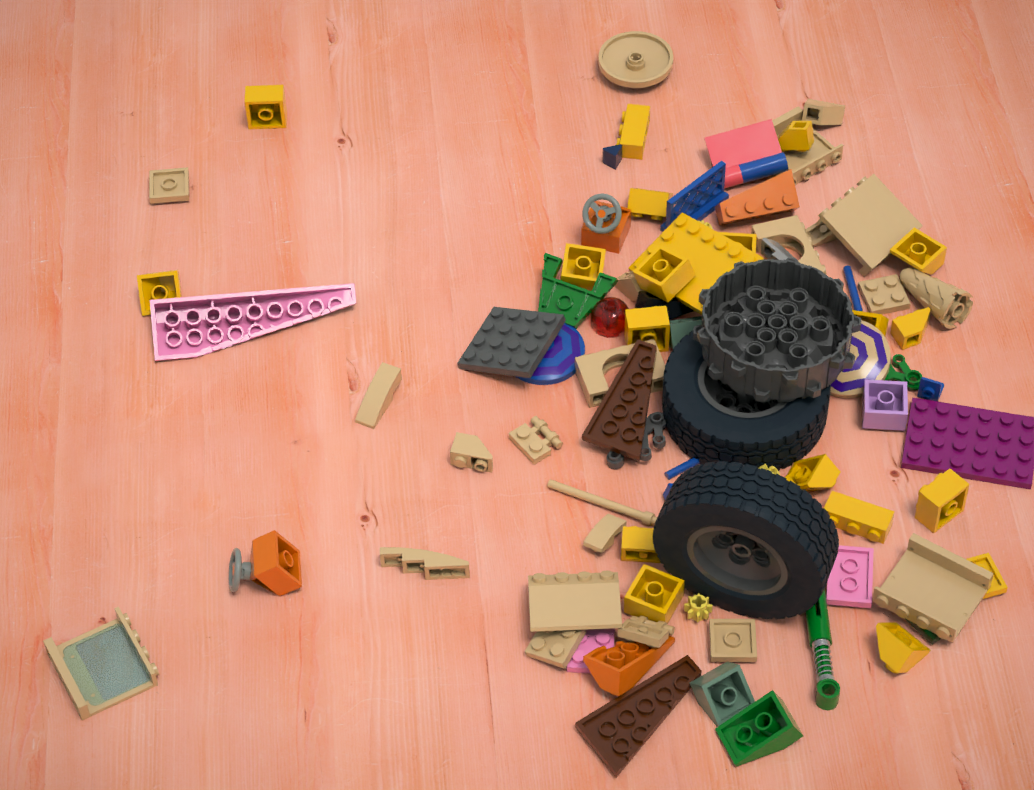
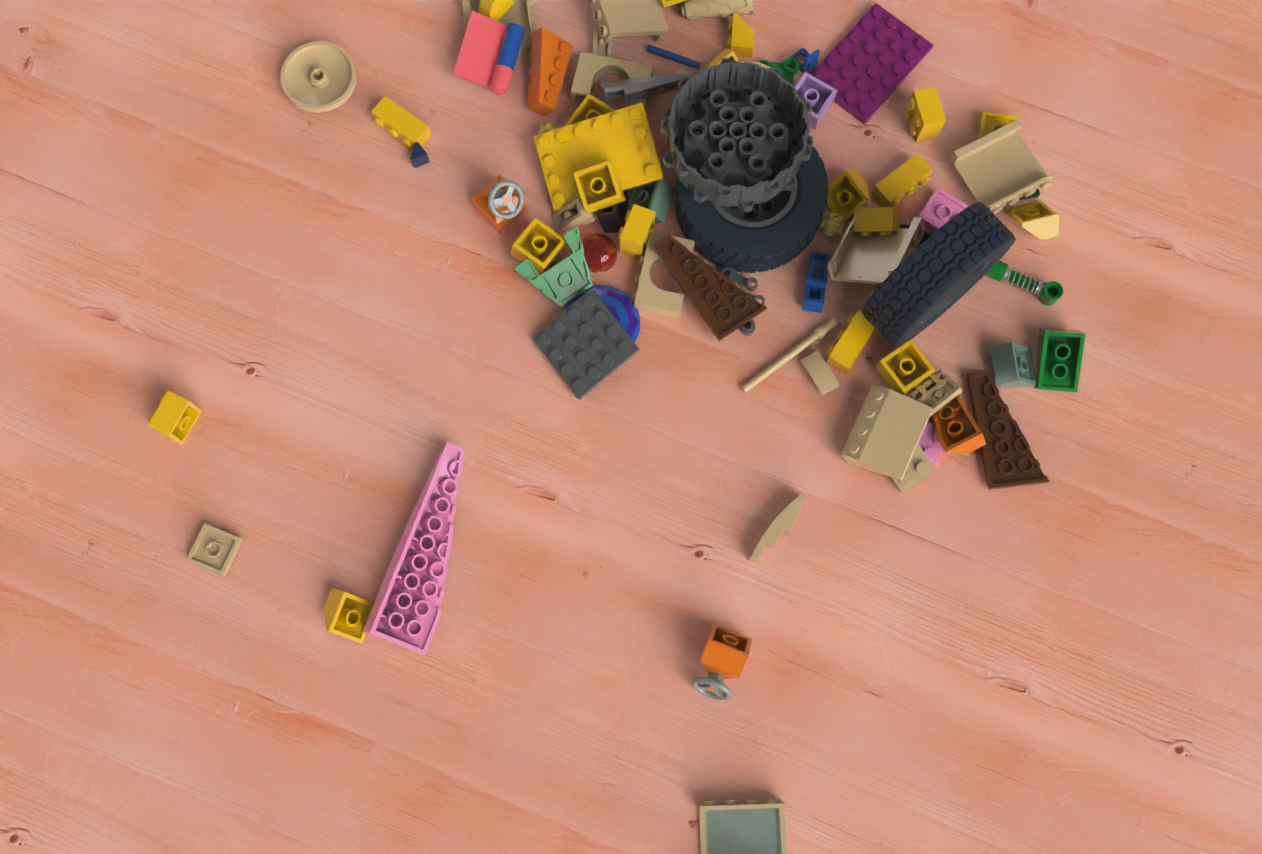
camera: 65 degrees left, 25 degrees up
(378, 395) = (580, 481): tan slope -> none
(470, 453) = (682, 435): tan slope -> none
(531, 444) = (693, 383): tan plate -> none
(648, 202) = (490, 154): yellow slope -> none
(682, 468) = (781, 281): blue bar -> none
(698, 607) = (931, 337): light yellow gear -> none
(705, 200) = (518, 123): blue fence -> none
(733, 640) = (968, 333): tan plate -> none
(884, 295) = (692, 38): tan plate -> none

